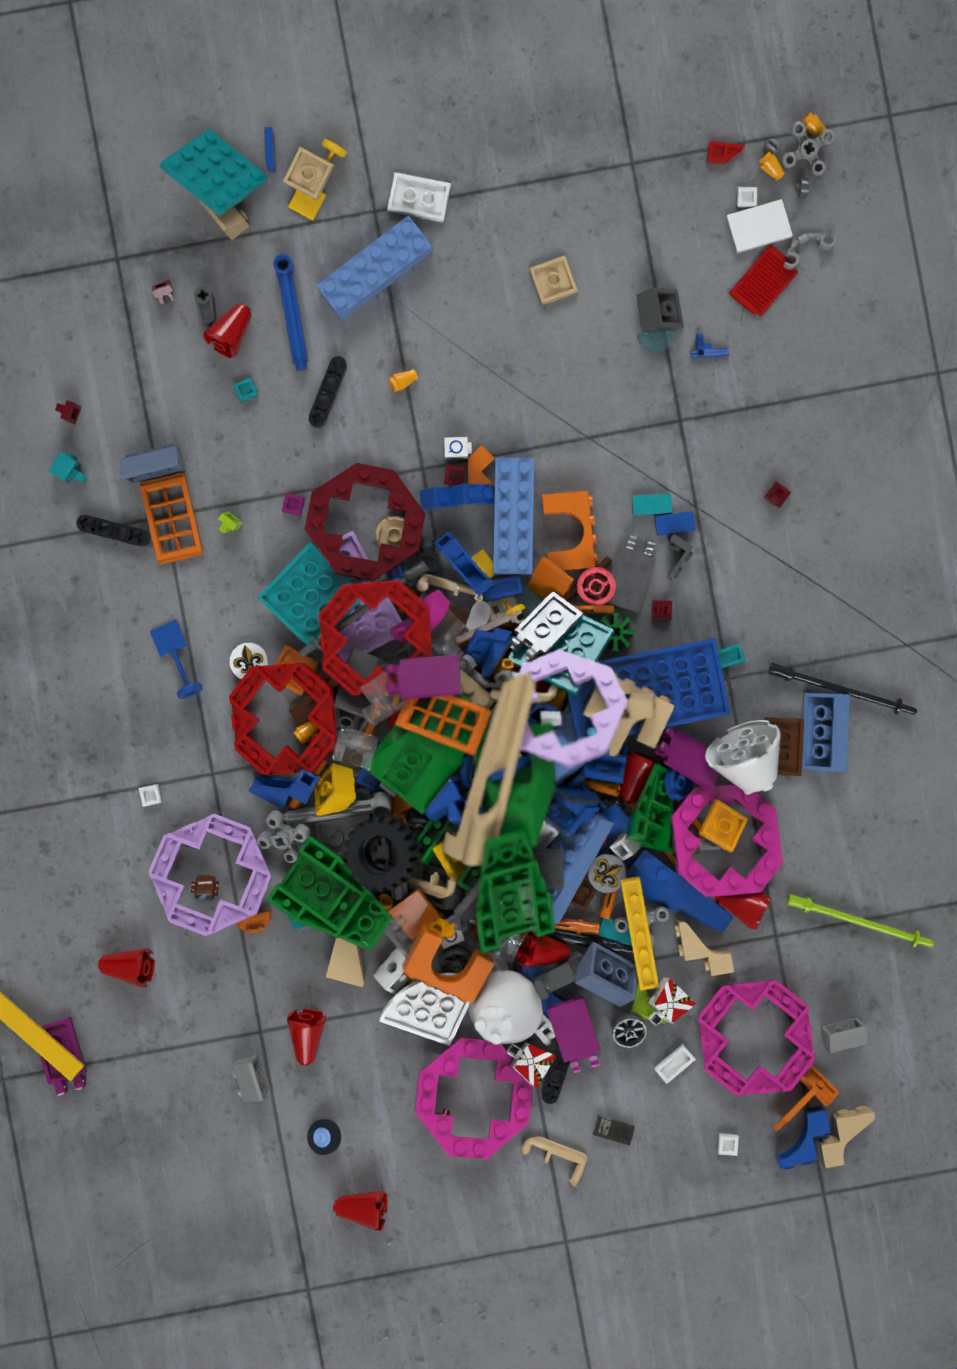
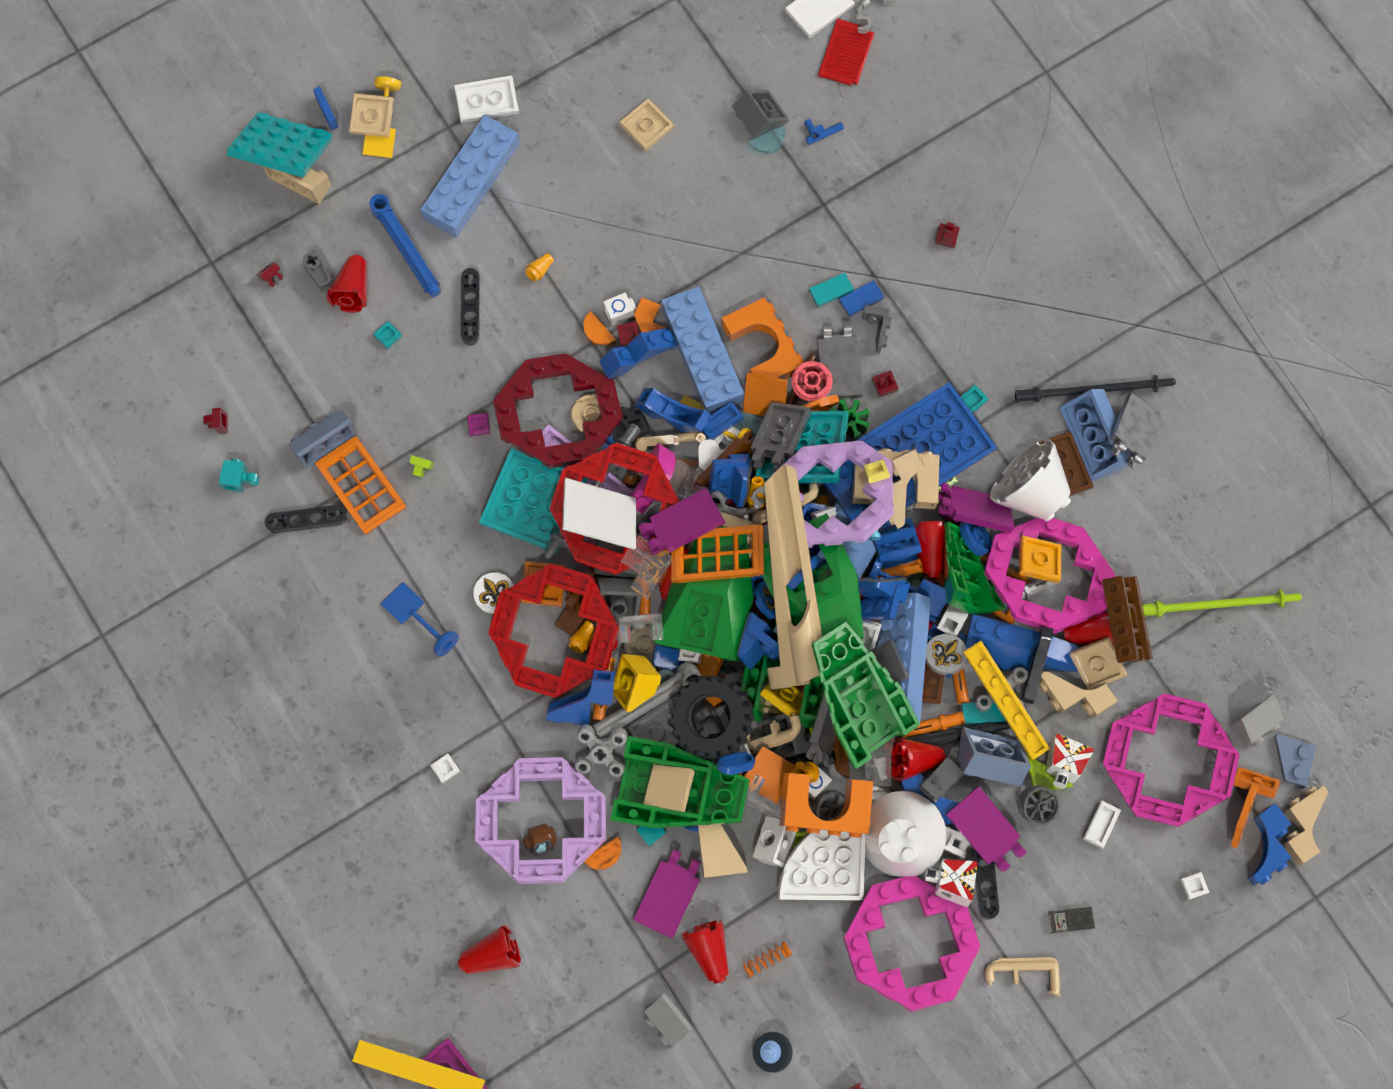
camera: 25 degrees left, 15 degrees down
(292, 976) = (668, 896): none -> magenta tile
(325, 894) = (669, 787): none -> tan tile
(356, 640) = (599, 513): none -> white piece
(370, 1061) = (786, 952): none -> orange piece
(388, 899) = (736, 763): none -> blue tile
(428, 460) = (596, 331): none -> orange tile
(608, 707) = (876, 471): none -> light yellow tile
(679, 915) = (1037, 665): none -> black beam
(732, 934) = (1098, 663): none -> tan tile
(773, 909) = (1127, 619): none -> reddish brown fence
(859, 744) = (1135, 430): none -> flat silver tile
(861, 1077) = (1295, 760): none -> sand blue wing

